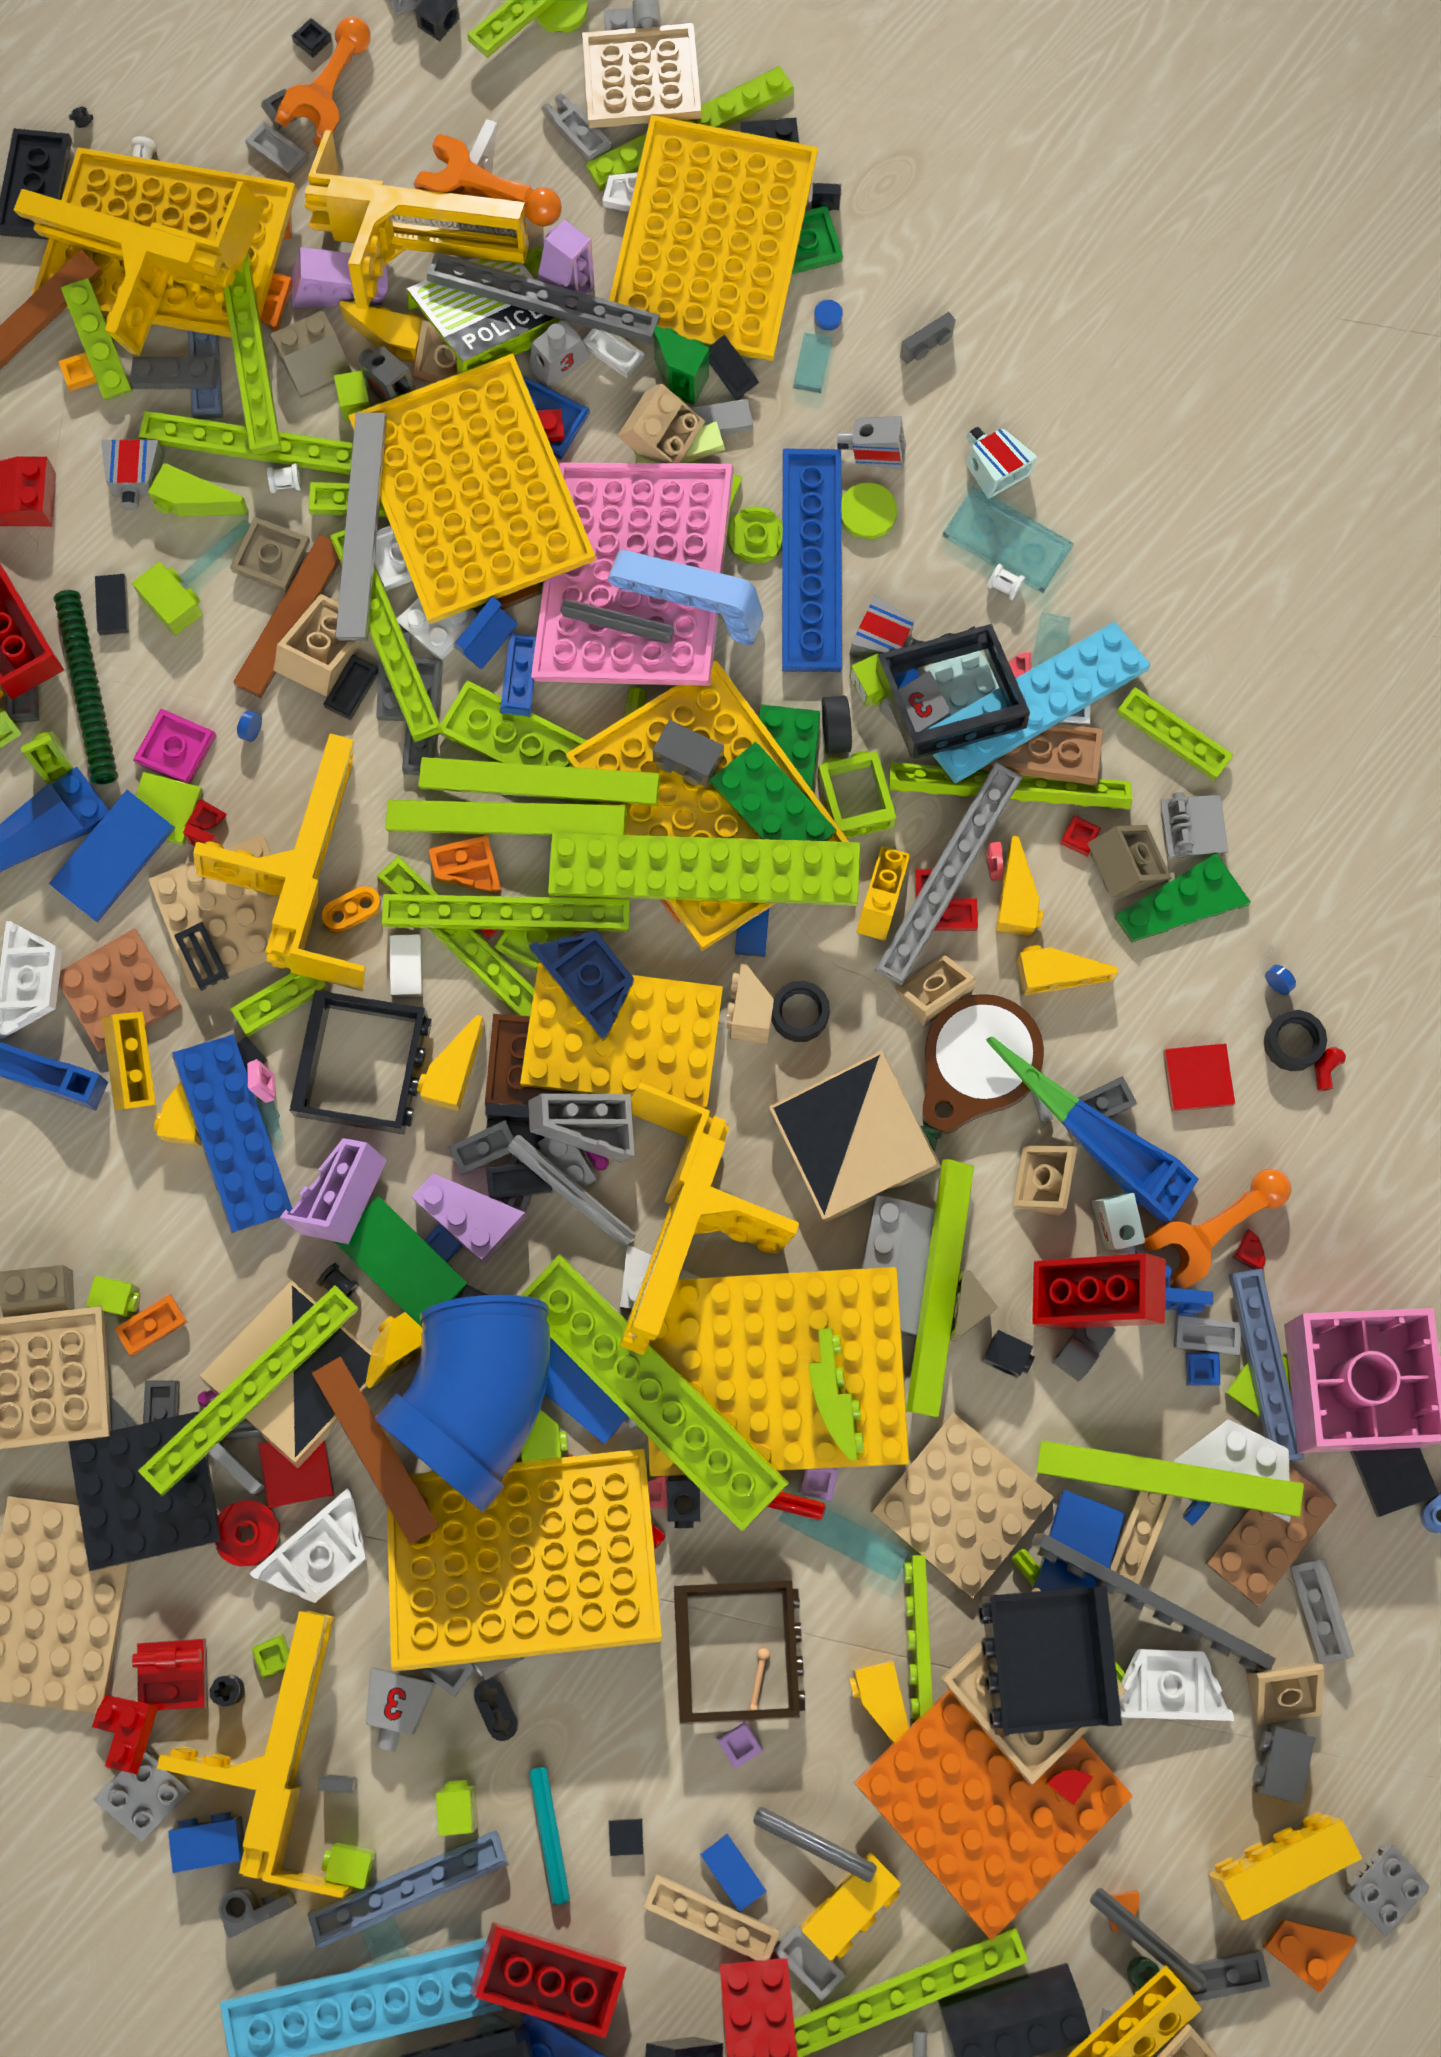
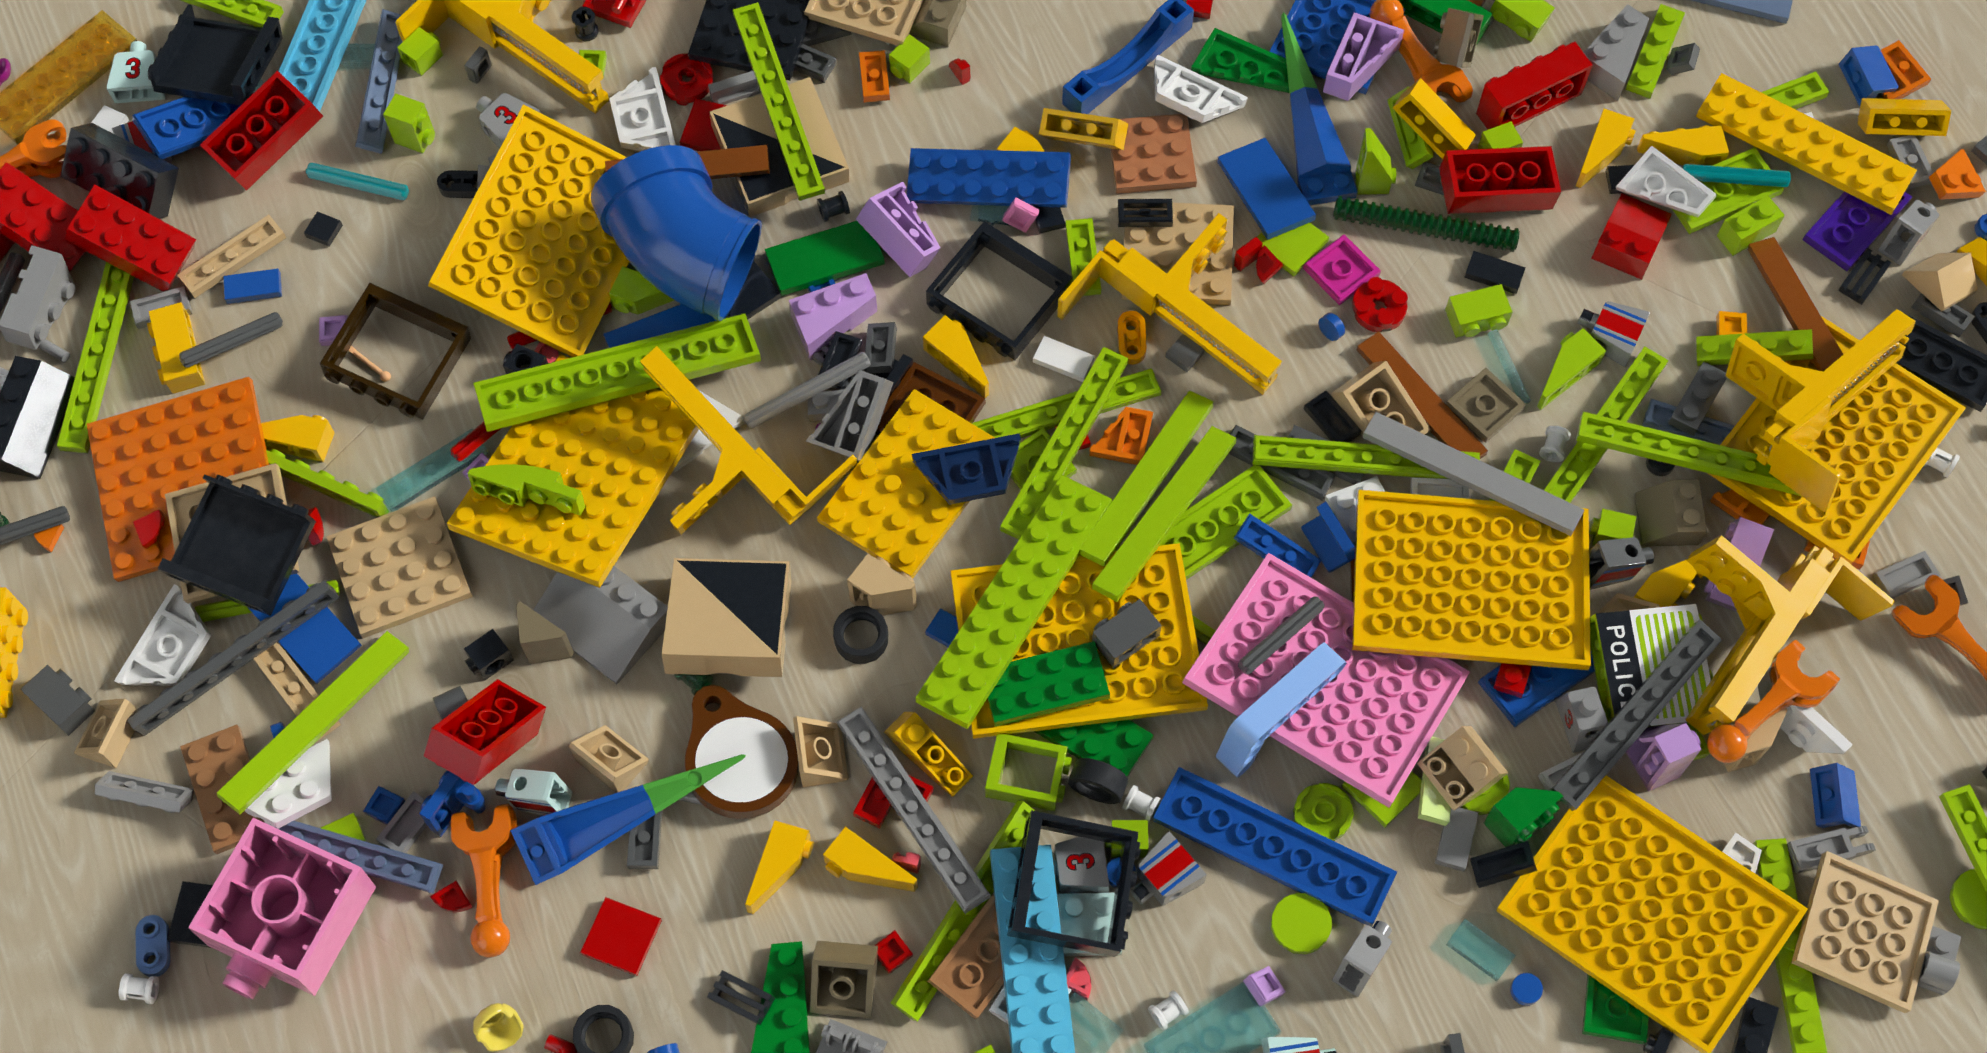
camera: 120 degrees right, 10 degrees down
(102, 1234) = (961, 70): none -> red tile
(190, 681) = (1386, 292): none -> red plate
(343, 853) = (1184, 353): none -> dark grey tile
(393, 1348) = (755, 206): yellow slope -> none
(527, 139) = (1835, 796): none -> blue panel
(832, 681) = (1141, 803): none -> white bush
(940, 1288) = (582, 633): lime tile -> none
(941, 515) = (1264, 986): none -> lavender tile
(965, 1623) = (317, 533): none -> red tile
(1207, 939) = (721, 987): none -> black tile
(1341, 1136) = (498, 1027): none -> light yellow hair

